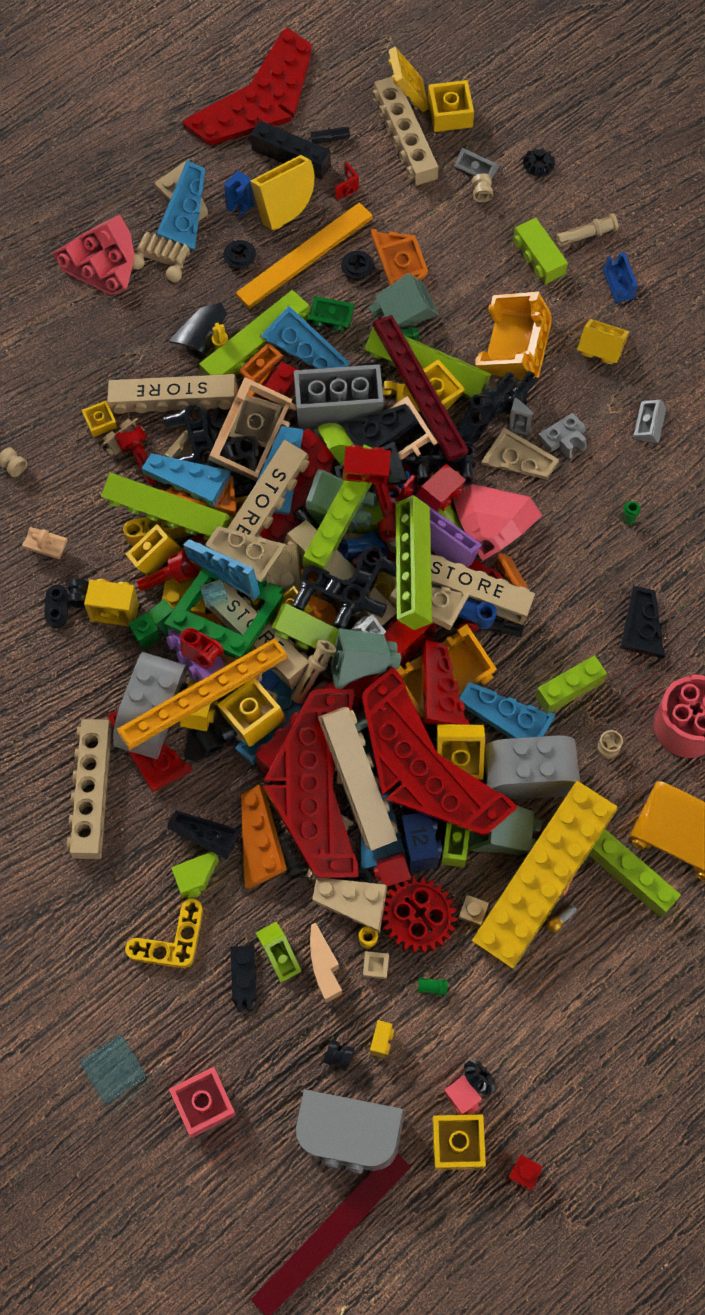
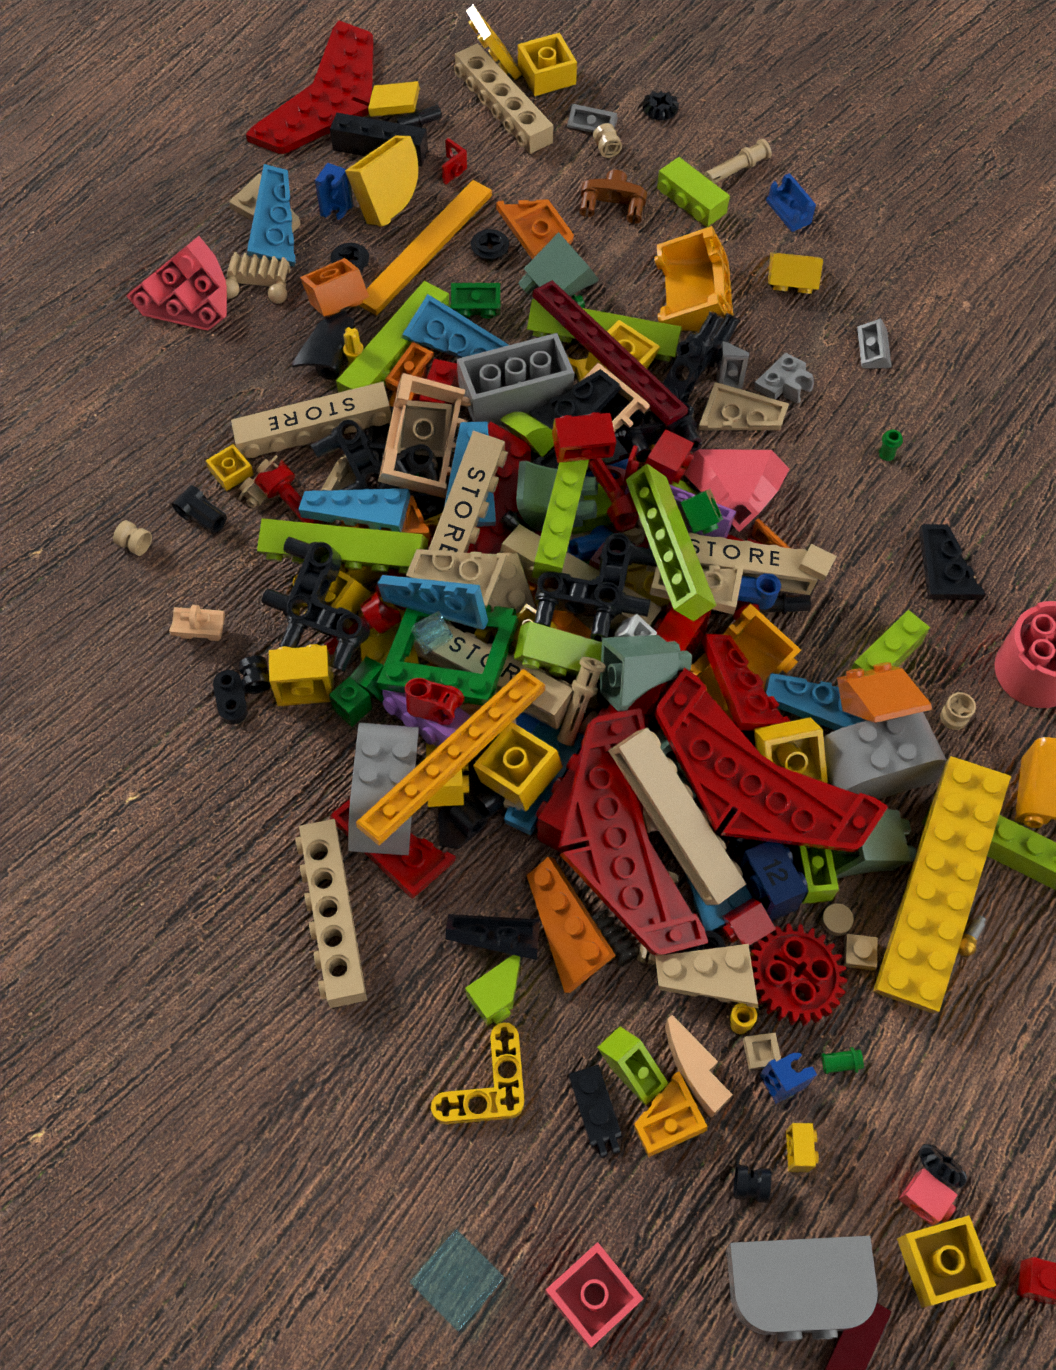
camera: 15 degrees left, 5 degrees down
(65, 446) = (195, 506): none -> black piece
(133, 538) = (311, 590): none -> black pin
(218, 281) = (335, 287): none -> orange brick
(294, 996) = (670, 1118): none -> light orange wing
(313, 113) = (394, 99): none -> yellow tile
(383, 989) = (783, 1080): none -> blue hinge
(450, 541) = (702, 512): none -> green brick
(463, 882) = (837, 919): none -> tan tile
(474, 235) = (613, 190): none -> dark orange connector
(530, 602) = (817, 562): none -> tan tile
(544, 718) = (880, 693): none -> orange slope

